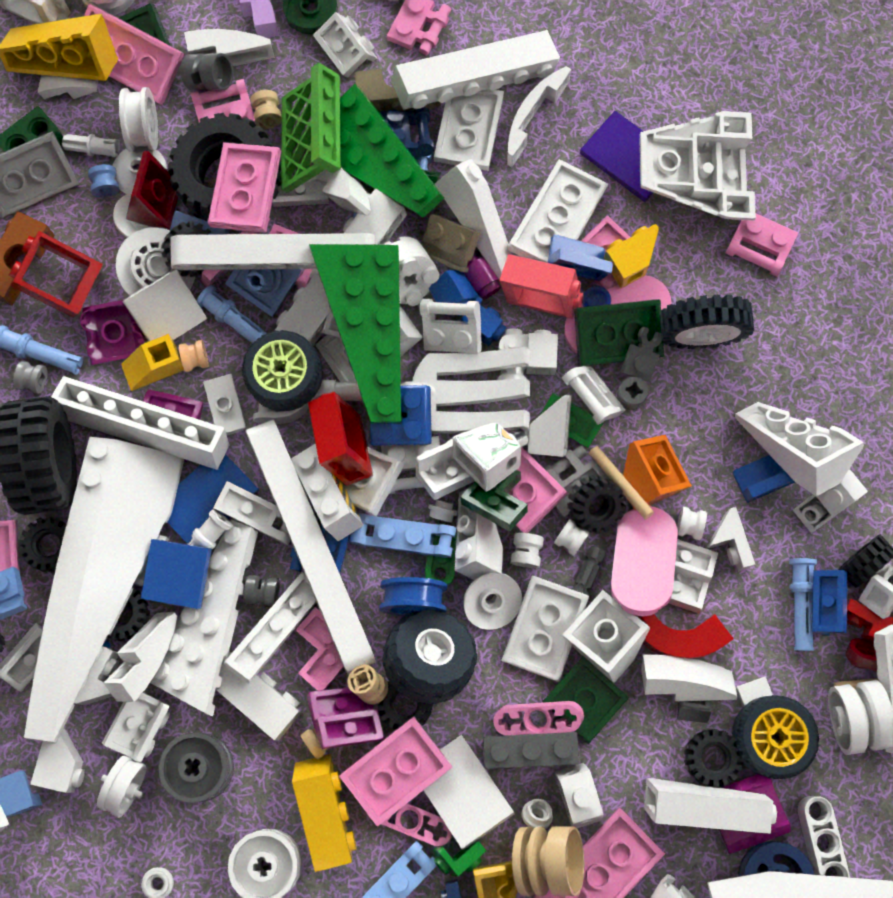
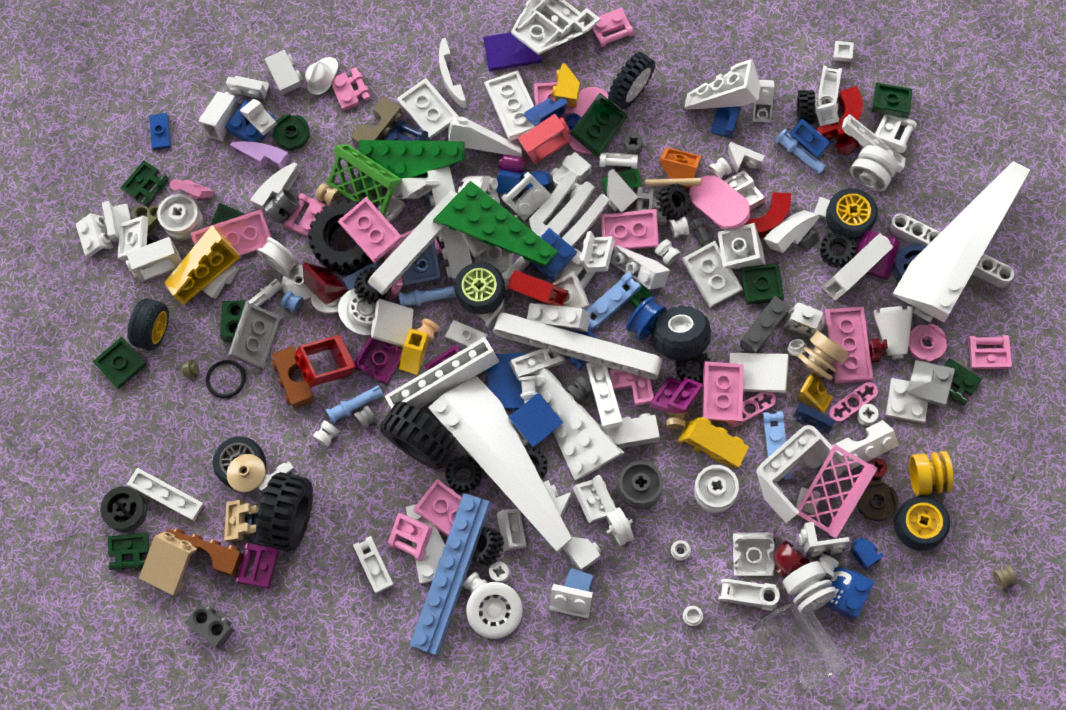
camera: 45 degrees left, 5 degrees down
(142, 658) = (564, 468): white slope -> none
(344, 44) = (327, 132): white bracket -> none
(367, 684) = (674, 371): tan wheel -> none
(442, 510) = (613, 275): white plate -> none
(449, 242) = (483, 162): dark tan plate -> none
(463, 860) = (789, 400): green bracket -> none
(474, 70) = (405, 80): white brick -> none
(489, 453) = (607, 227): white torso -> none
(497, 503) = (629, 243): dark green plate -> none
(497, 611) = (684, 286): white dish -> none
(561, 724) = (757, 295): bright pink beam -> none
(640, 359) = (620, 126): dark grey plate -> none

